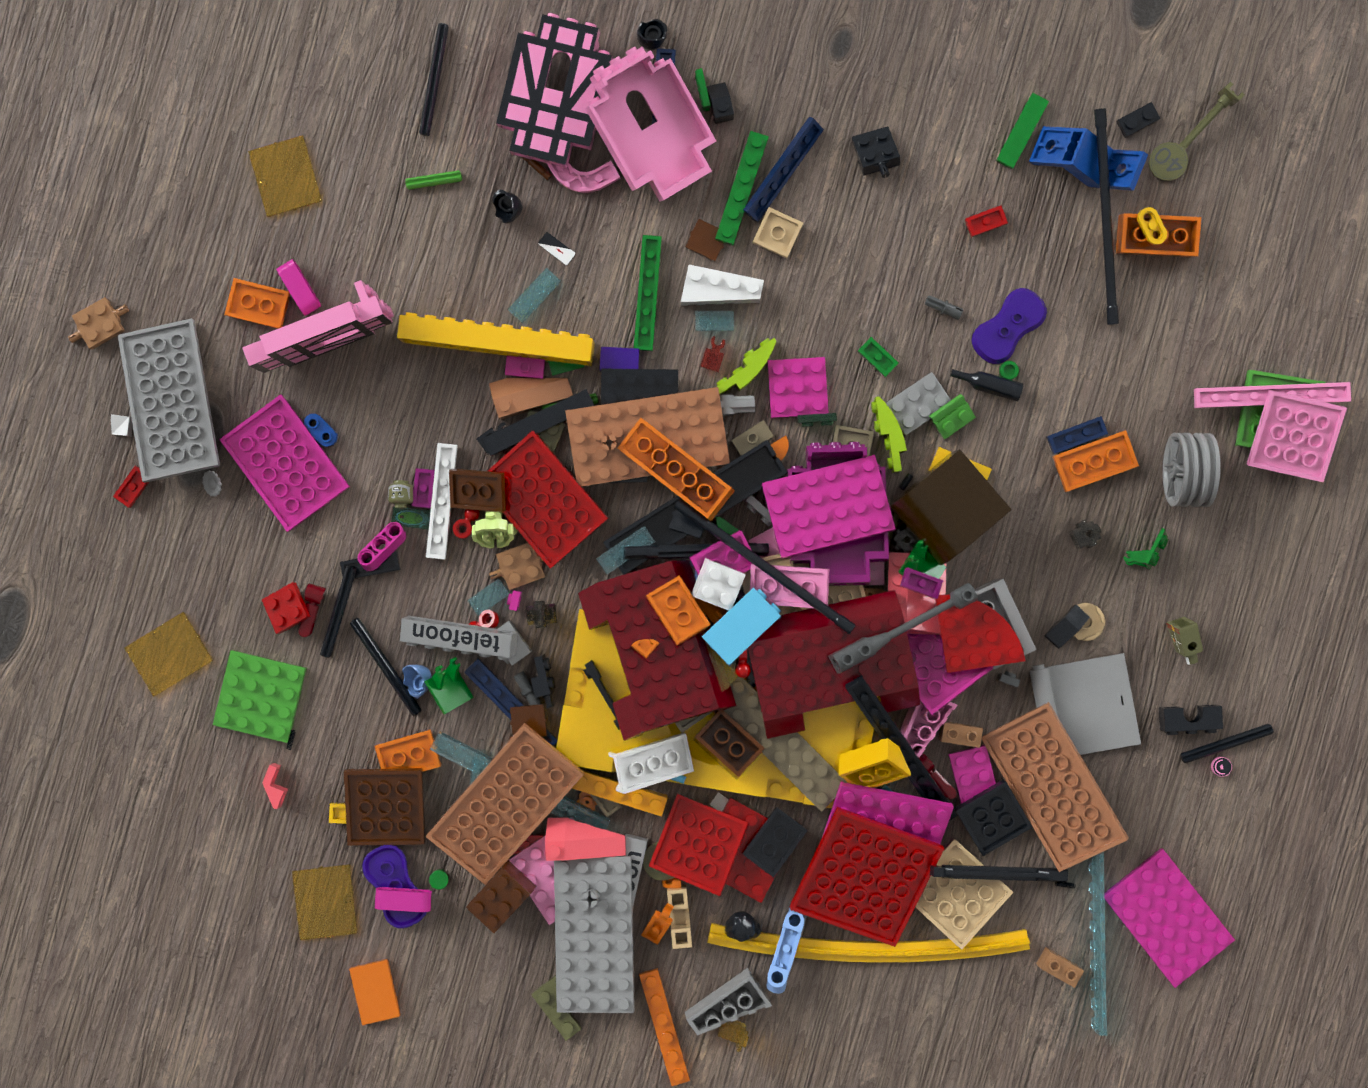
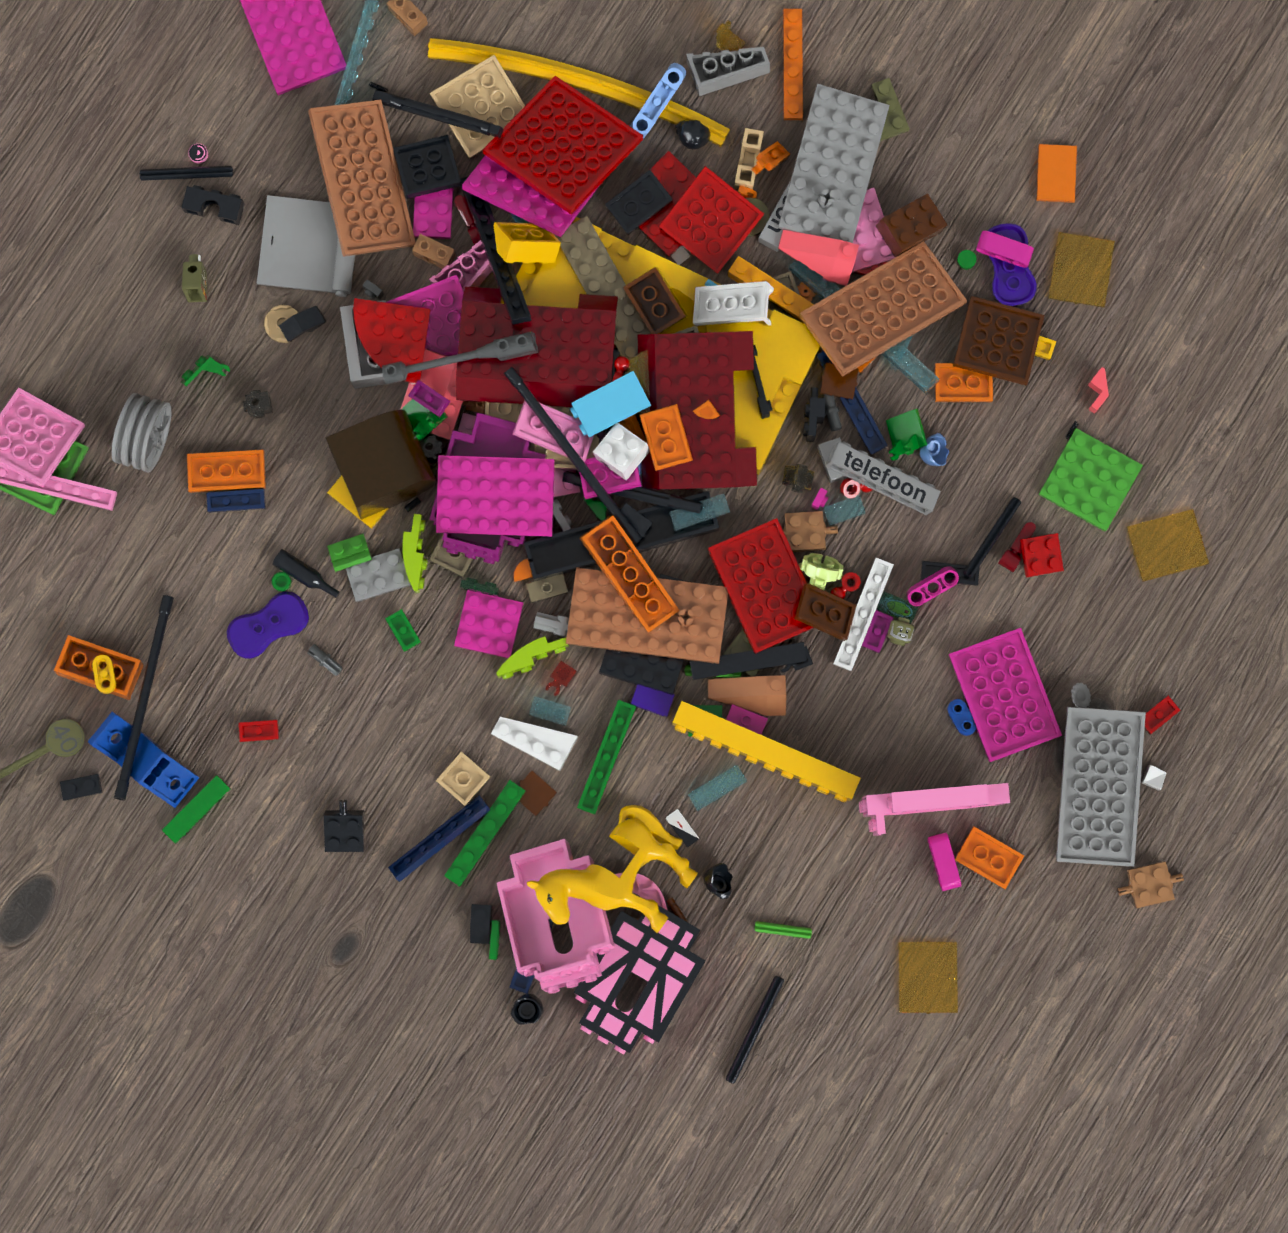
camera: 170 degrees left, 5 degrees down
(385, 666) = (962, 473): black axle -> none
(612, 158) = (601, 888): none -> yellow animal

